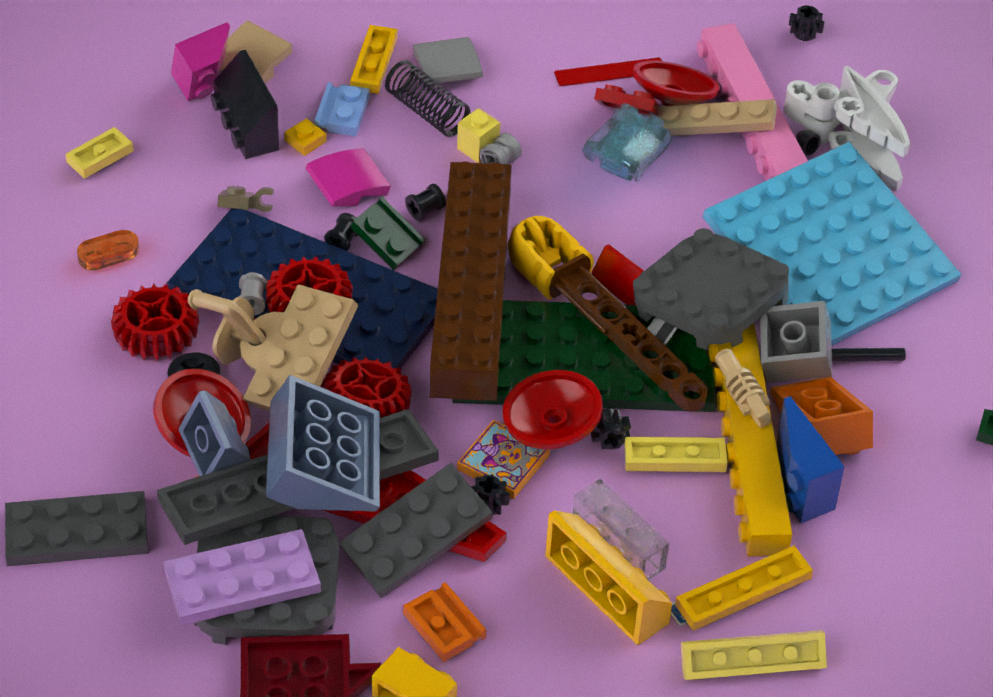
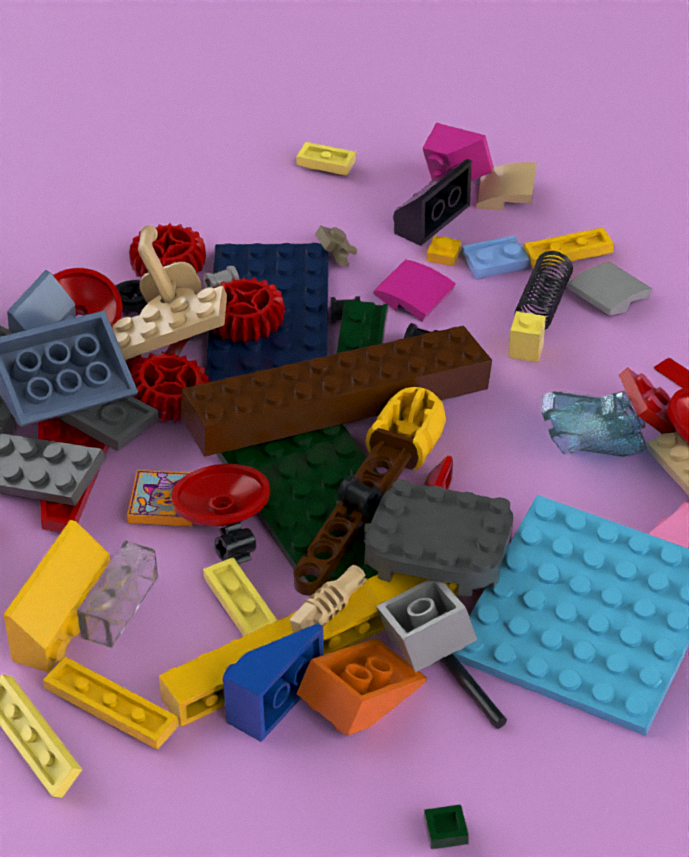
camera: 65 degrees right, 5 degrees down
(108, 250) = (226, 203): clear orange plate -> none
(492, 492) = (109, 500): black gear -> none
(503, 150) = (520, 358): light grey wheel -> none
(634, 314) = (359, 495): none -> black bush

